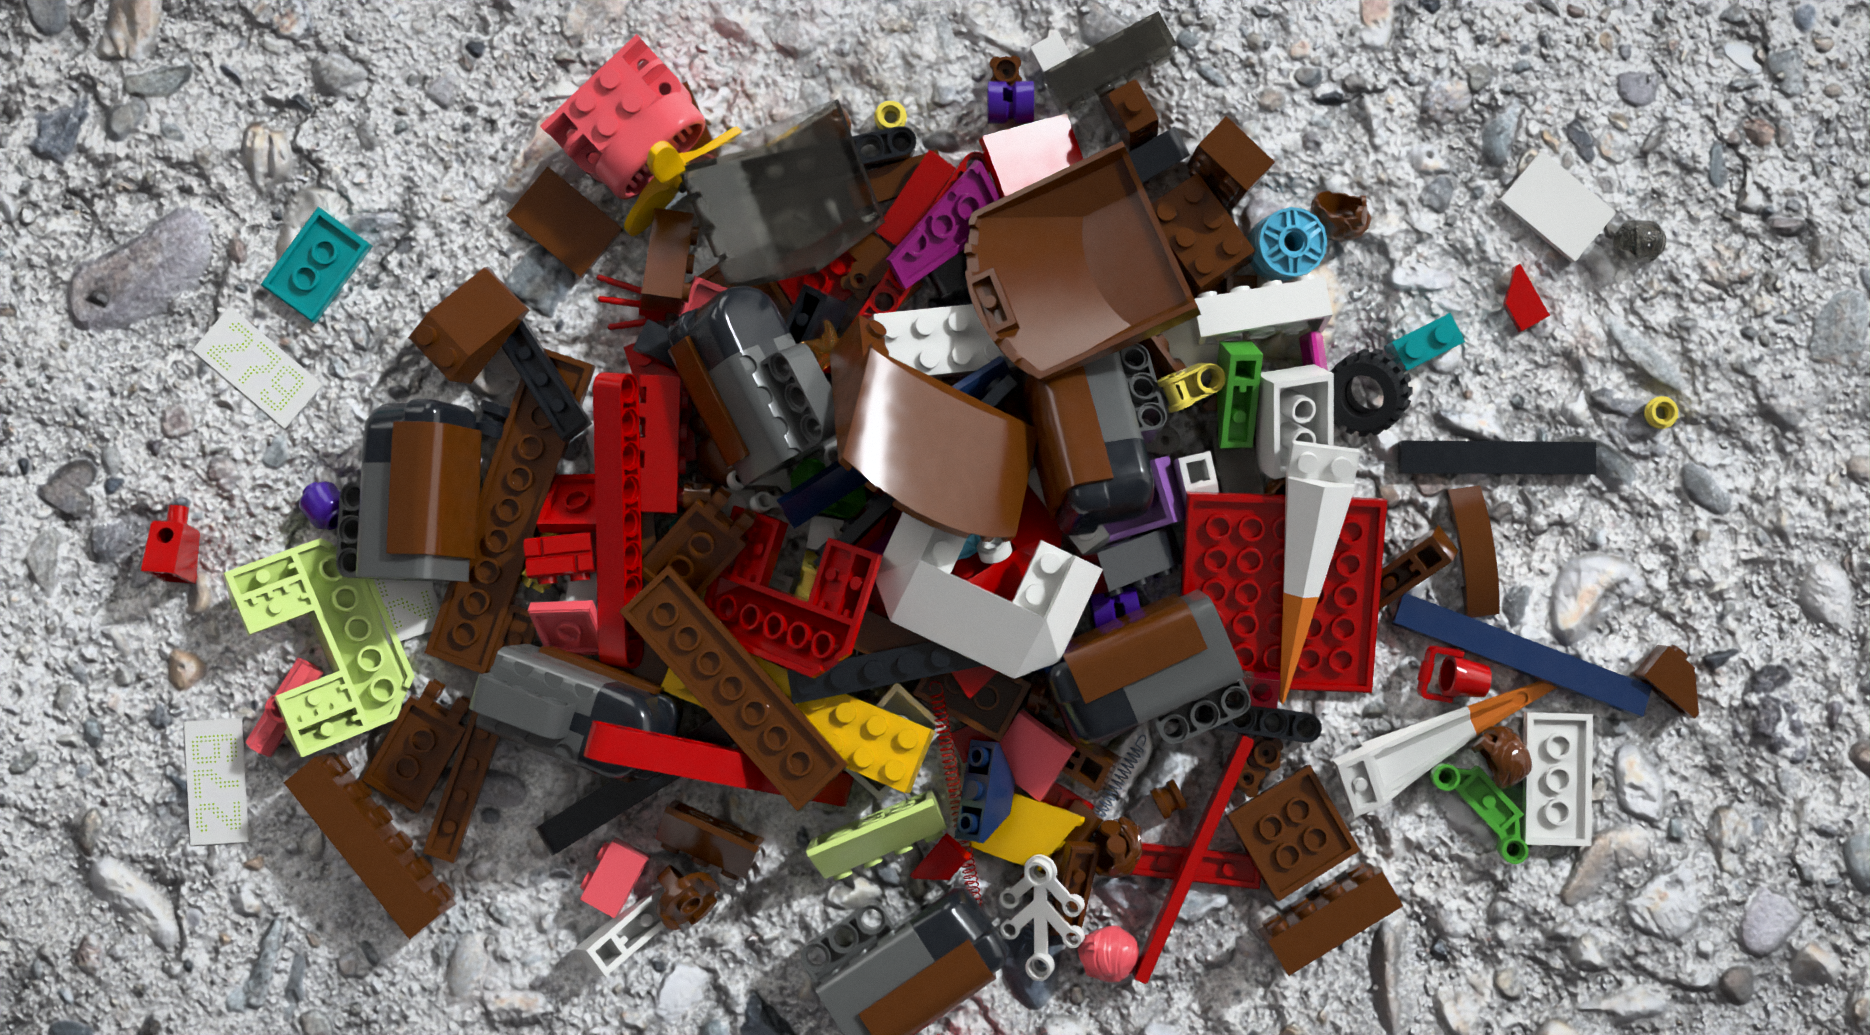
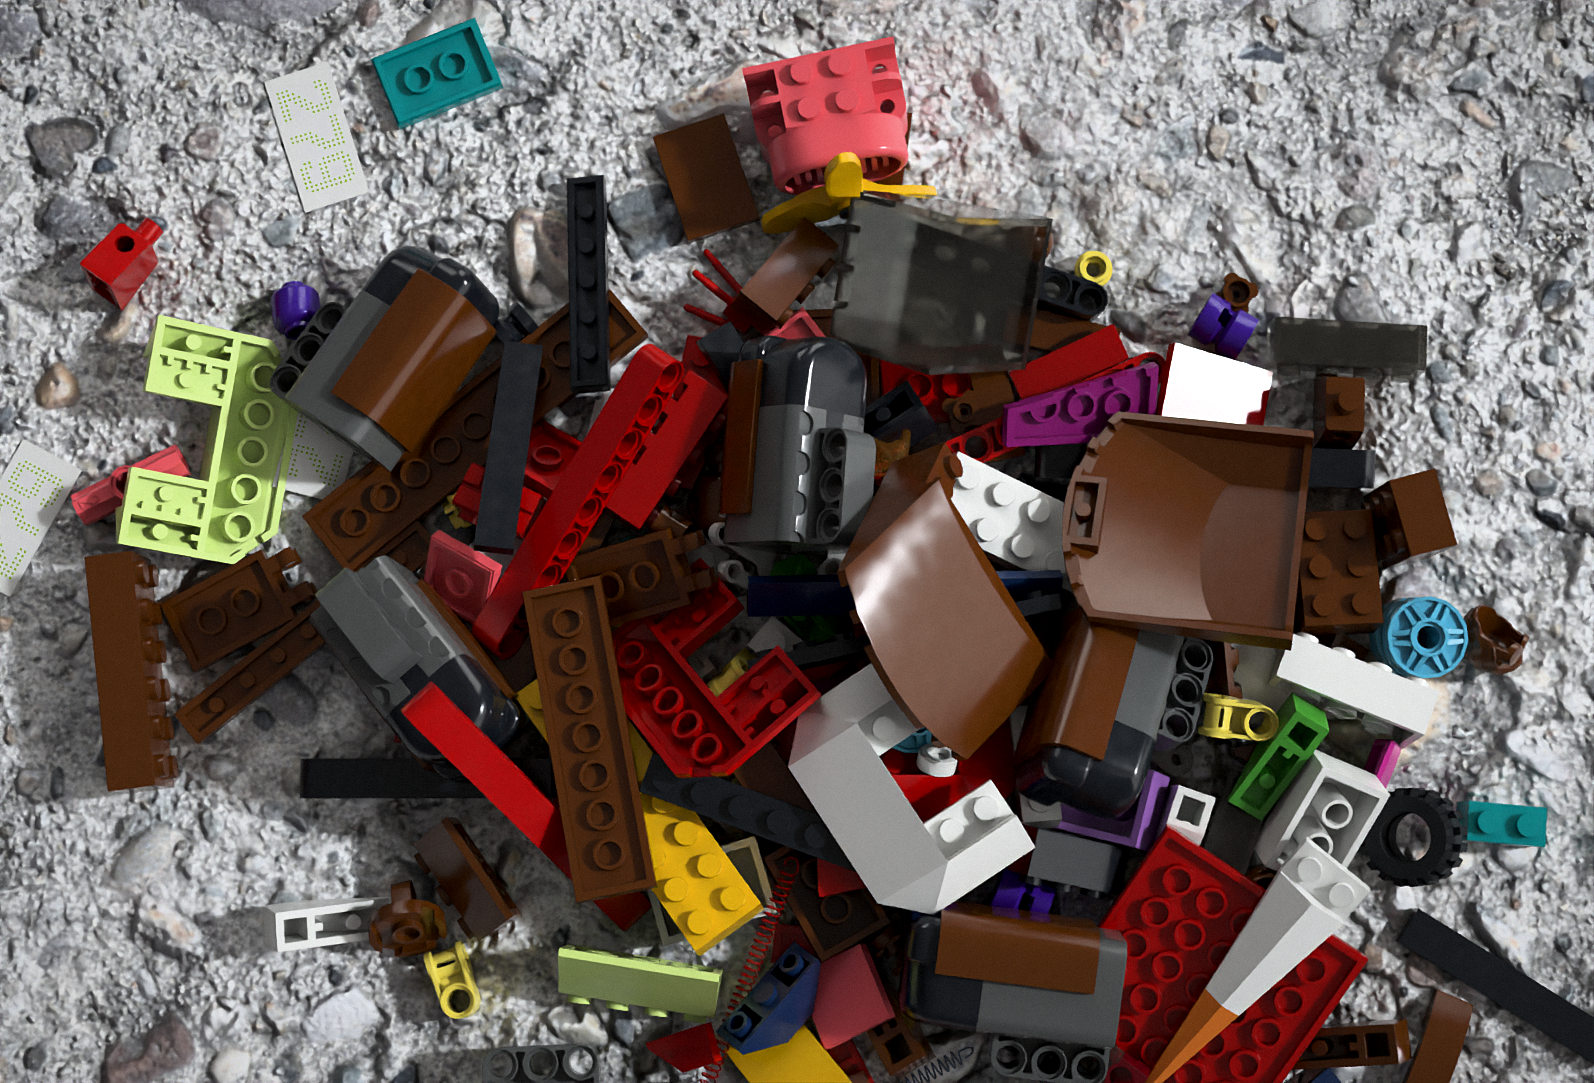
camera: 30 degrees right, 5 degrees down
(469, 326) = (549, 222): reddish brown slope -> none
(543, 512) = (508, 448): none -> black tile
(614, 877) = (348, 858): coral brick -> none
(743, 914) = (452, 978): none -> light yellow piece
(1050, 52) = (1293, 301): white tile -> none

